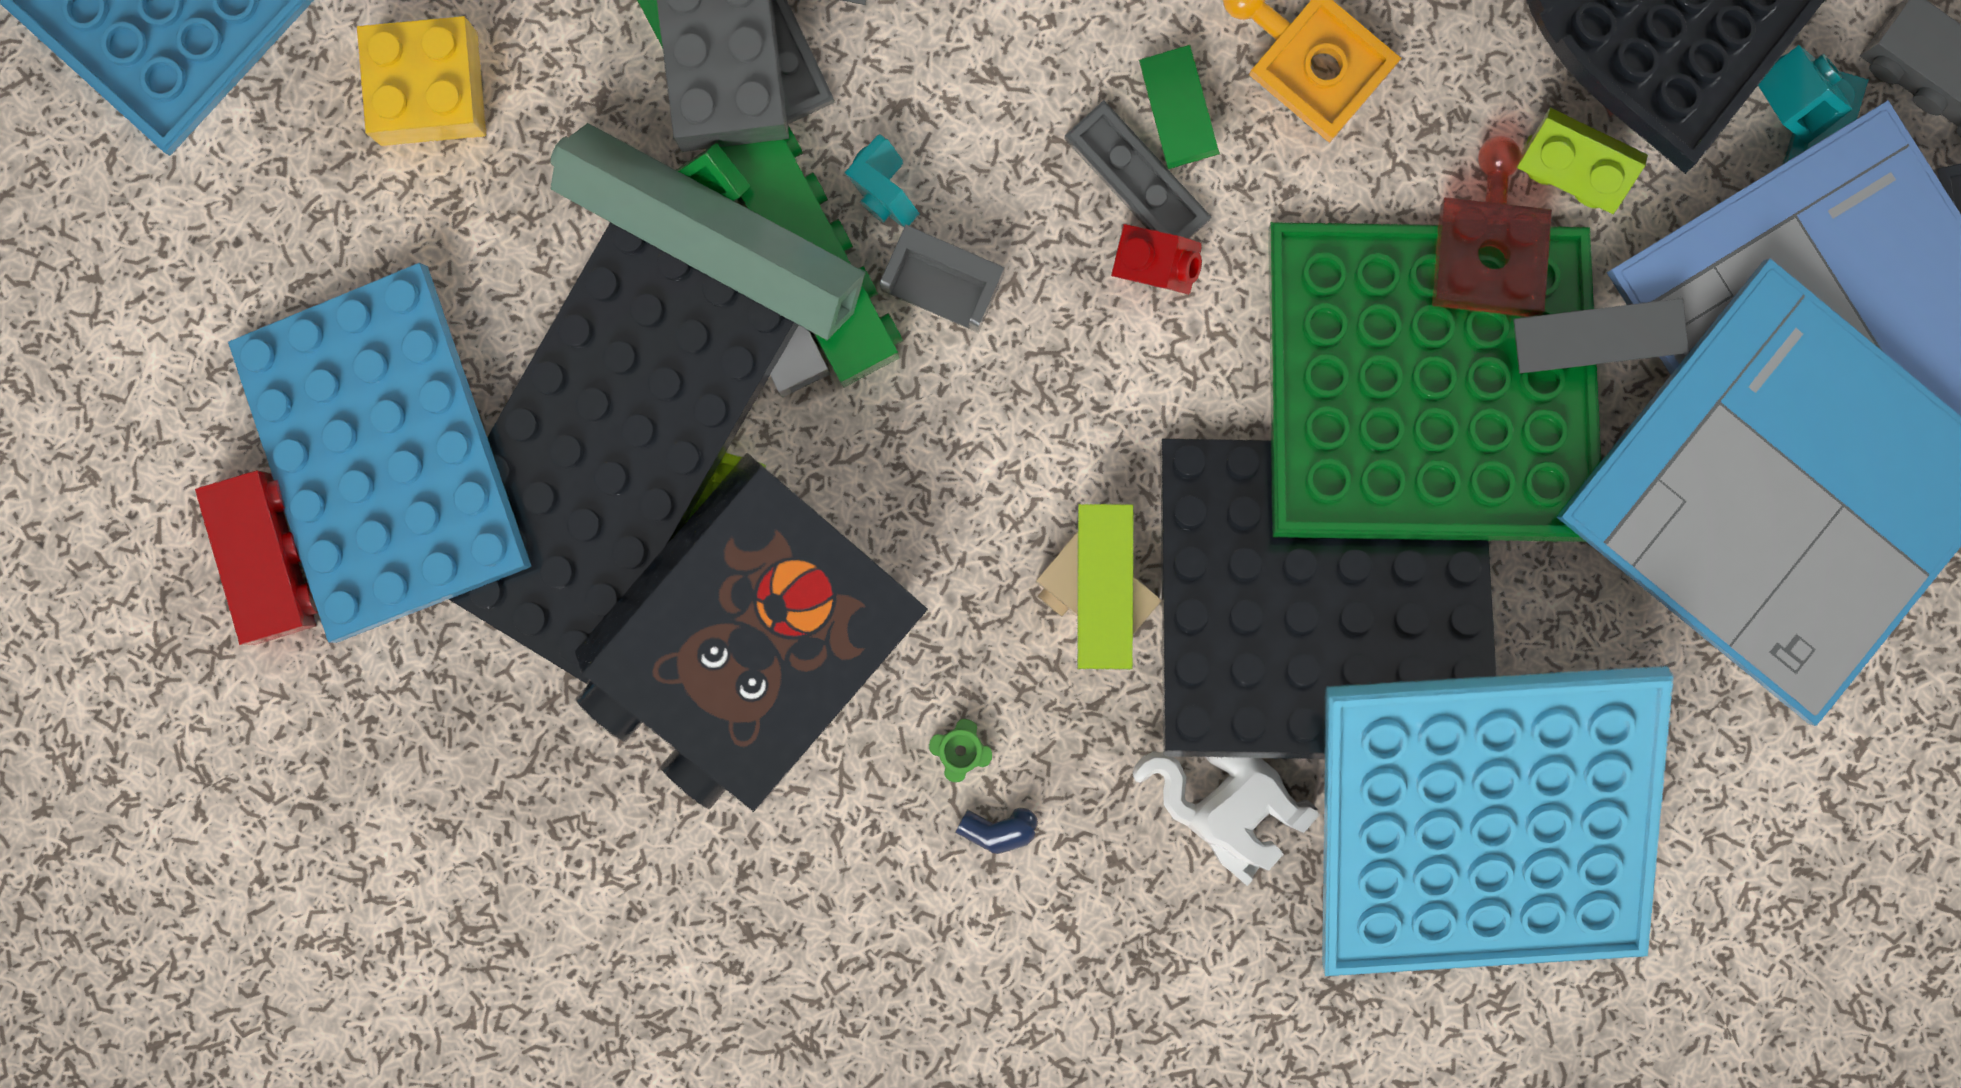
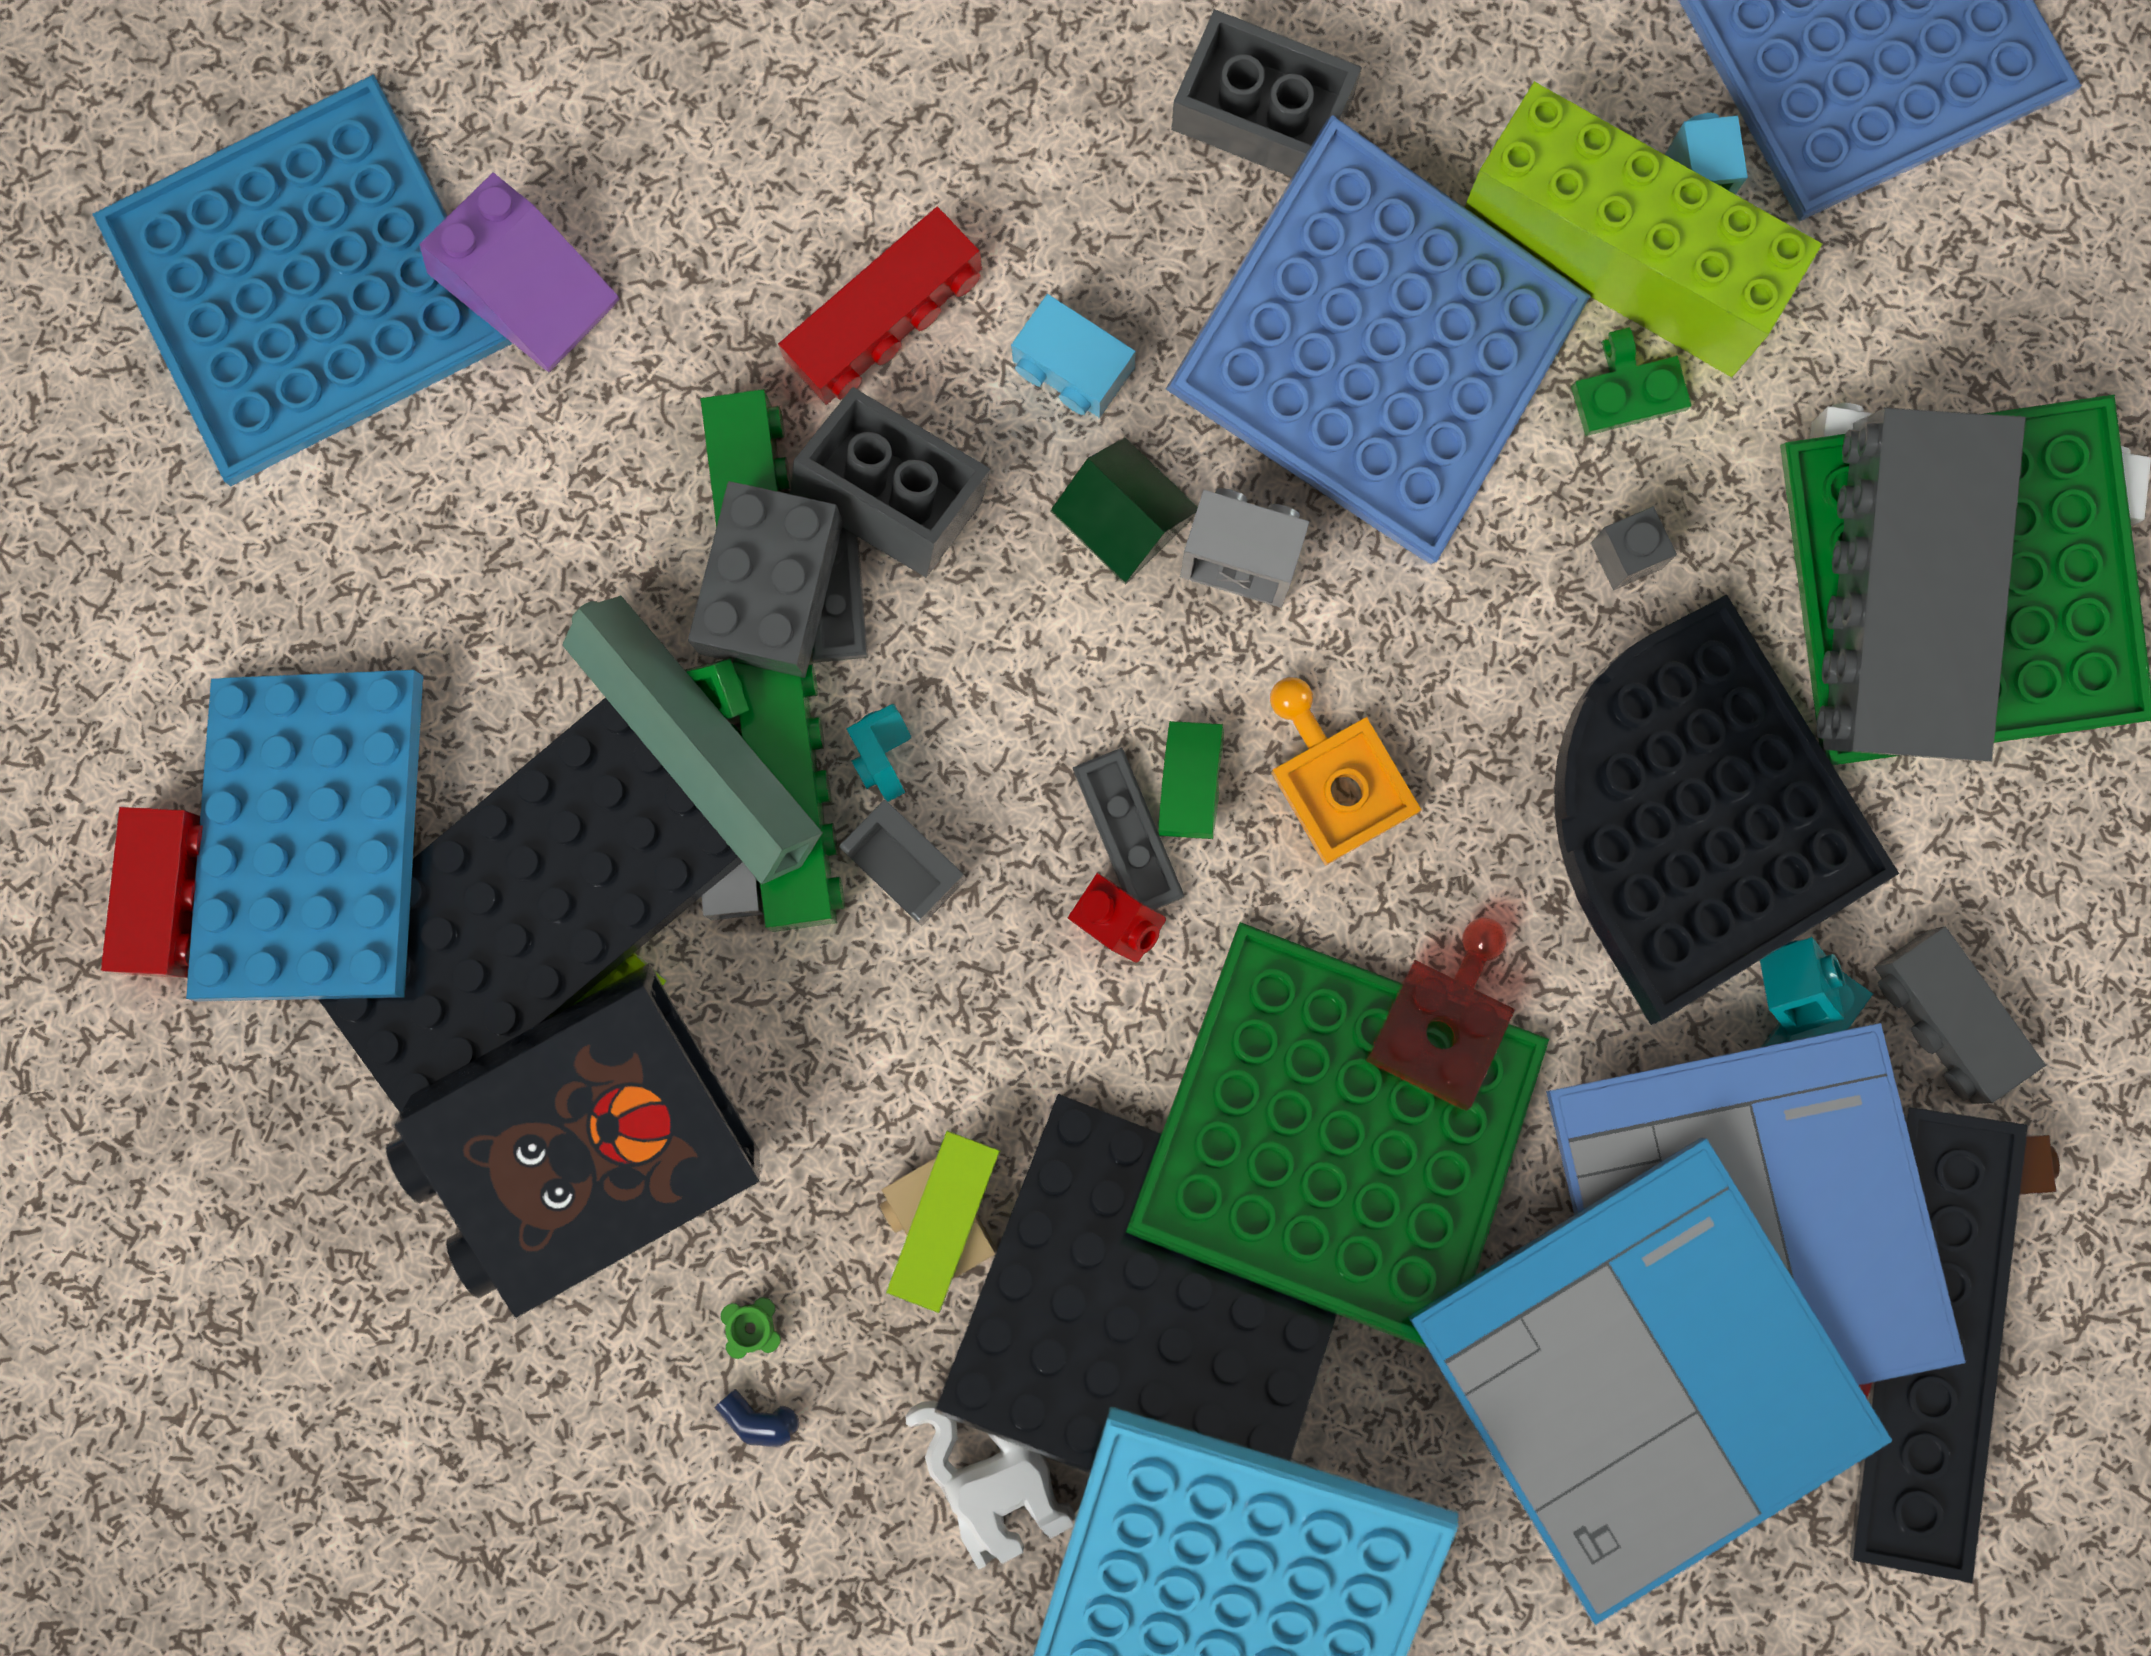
camera: 25 degrees right, 5 degrees down
(421, 81) = (485, 500): yellow brick -> none
(1581, 161) = (1560, 973): lime bracket -> none
(1601, 335) = (1516, 1152): dark grey tile -> none

